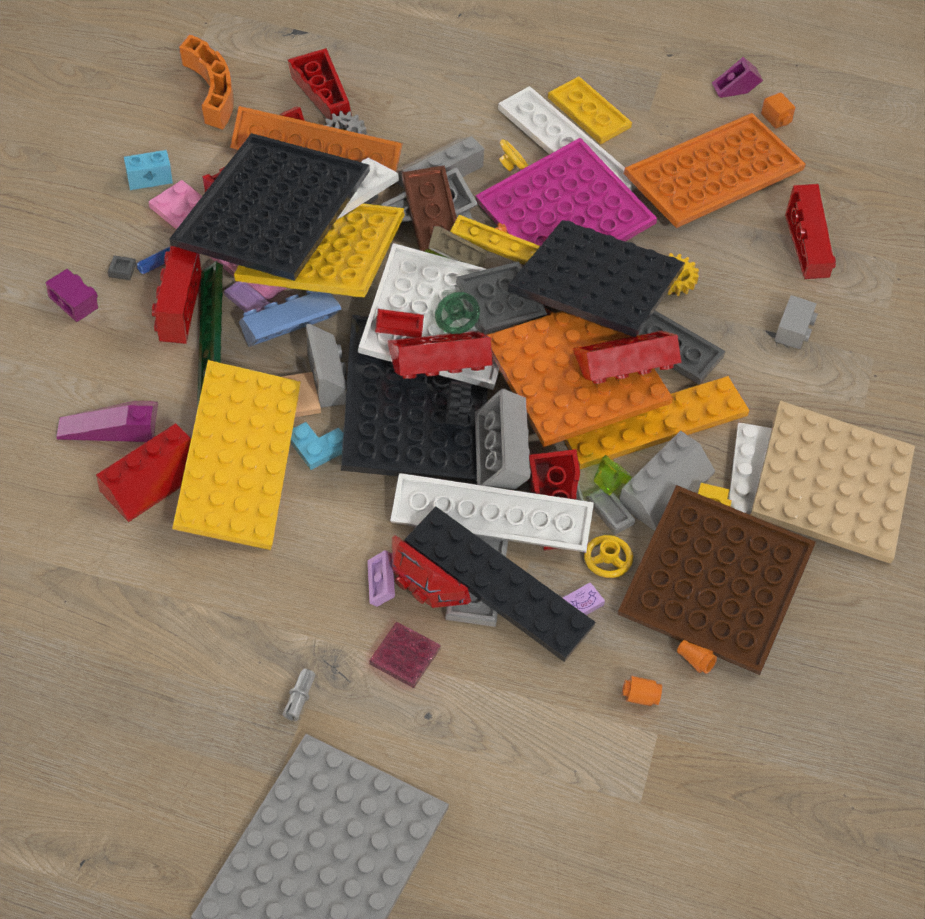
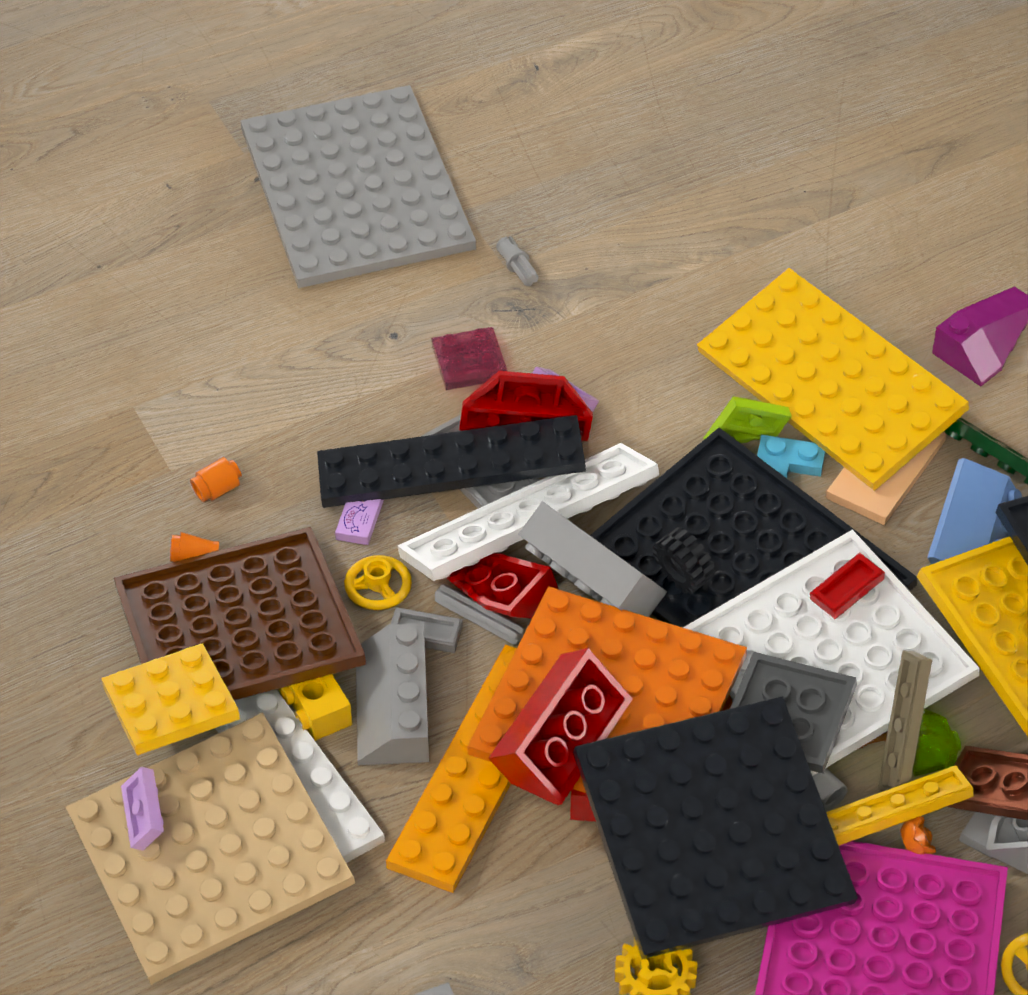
camera: 140 degrees right, 5 degrees down
(146, 473) = (885, 300): red slope -> none
(314, 469) = (750, 419): none -> lime wing
(326, 366) = (878, 511): light grey slope -> none
(440, 353) = (766, 585): red slope -> none
(451, 303) = (805, 638): clear green piece -> none
(610, 475) = (451, 648): clear neon green slope -> none
(696, 353) = (545, 874): dark grey plate -> none
(806, 538) = (170, 699): none -> yellow plate
(863, 504) = (142, 808): none -> lavender plate

